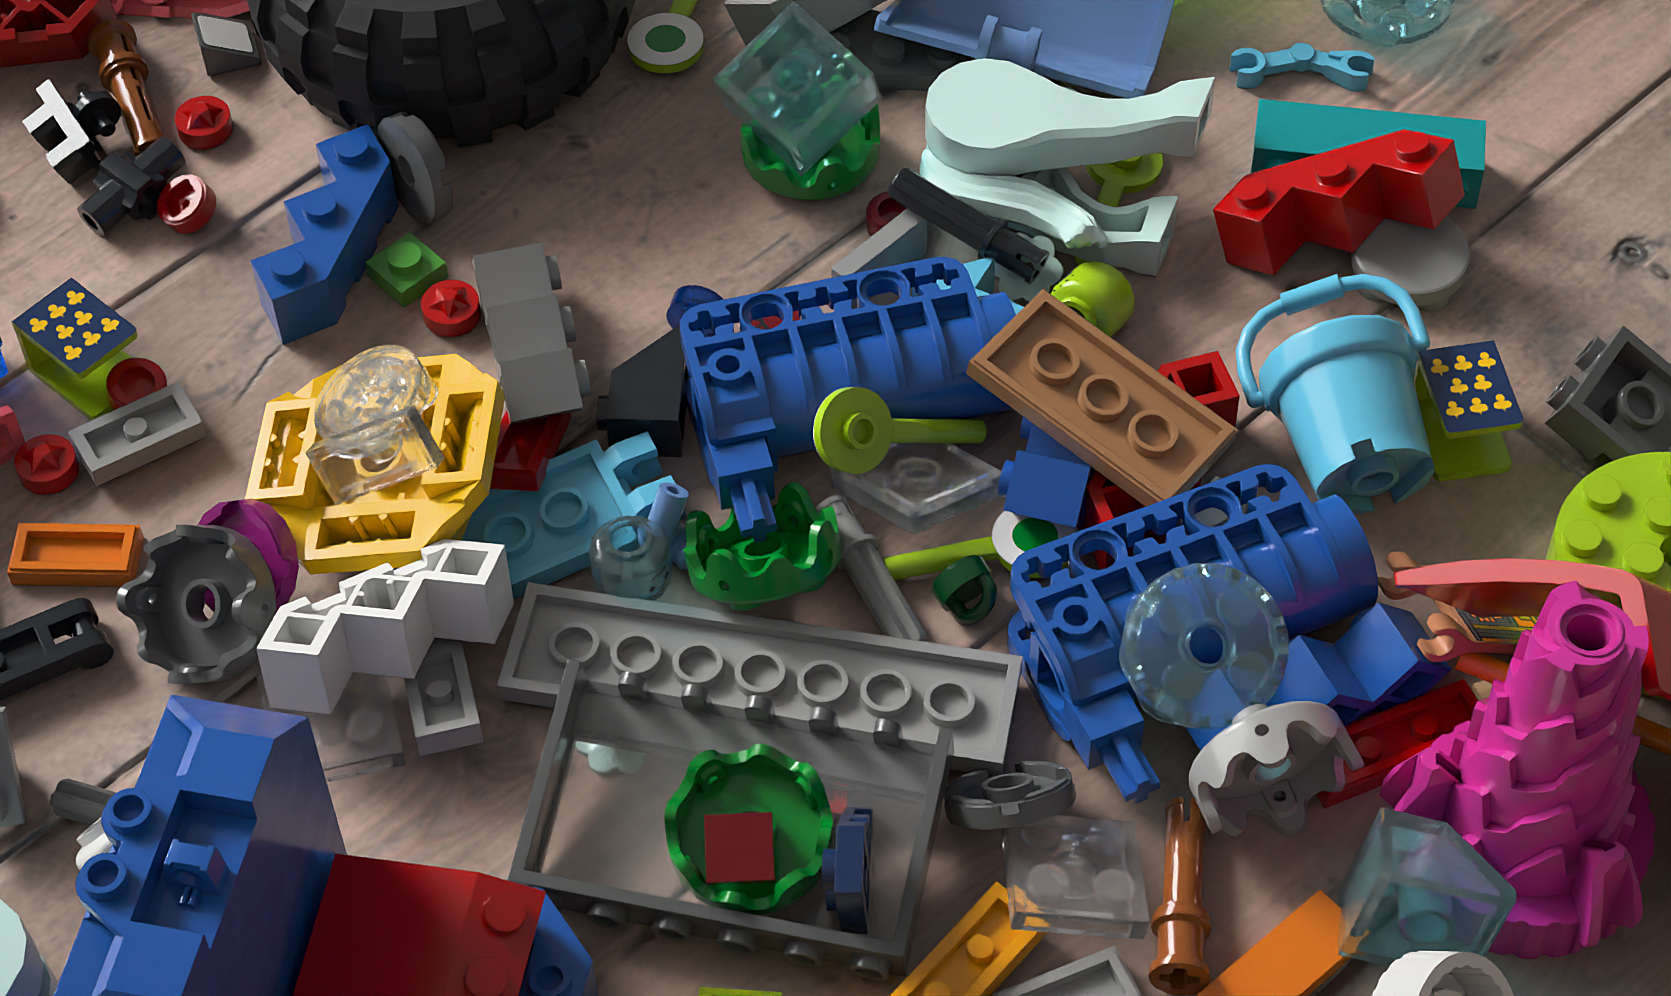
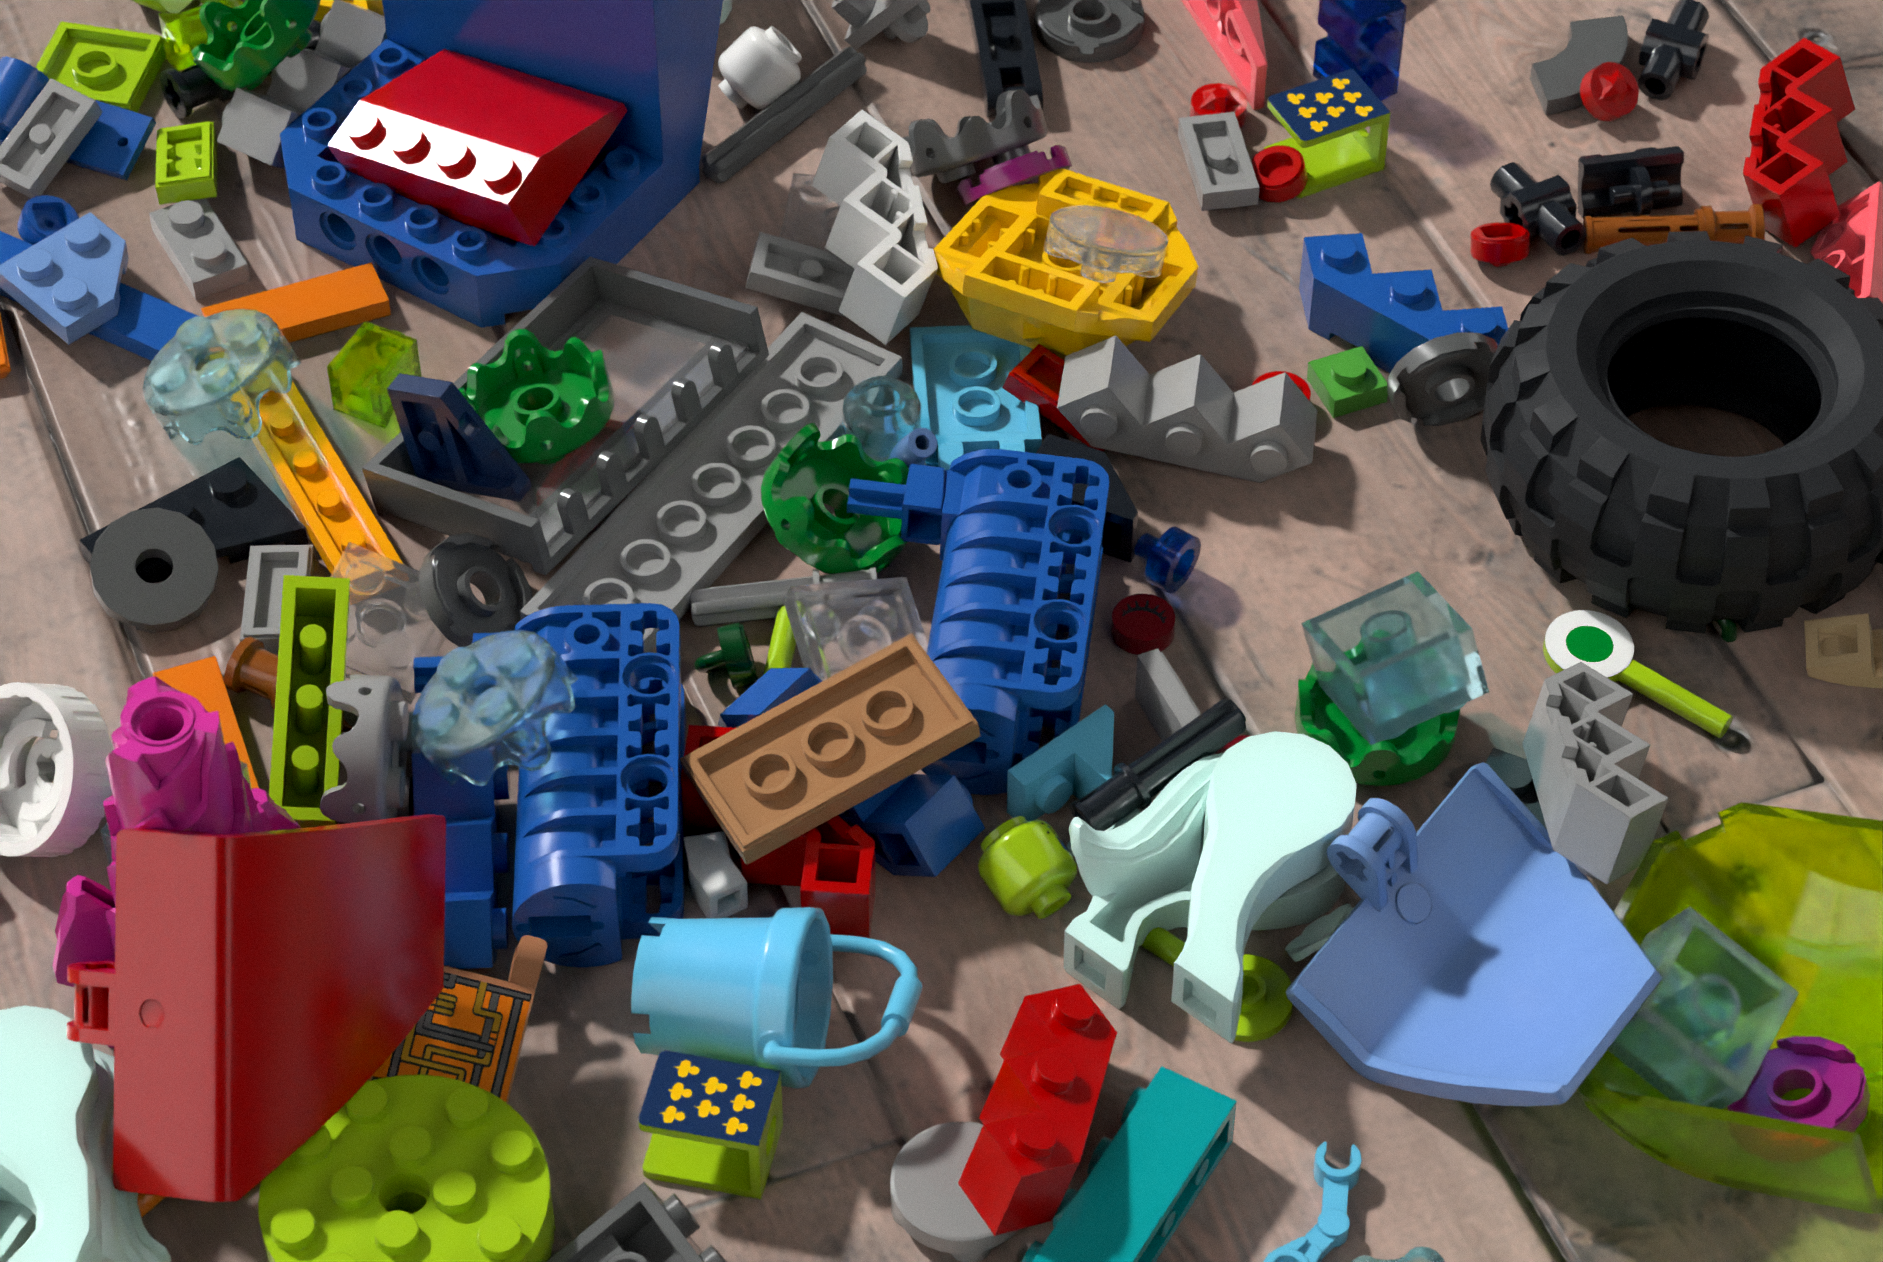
camera: 110 degrees right, 5 degrees down
(75, 554) = (1107, 112): orange tile -> none
(375, 455) = (1029, 217): clear tile -> none
(739, 848) = (515, 380): dark red tile -> none
(857, 429) = (910, 574): lime piece -> none
(1243, 840) = (305, 725): none -> lime brick

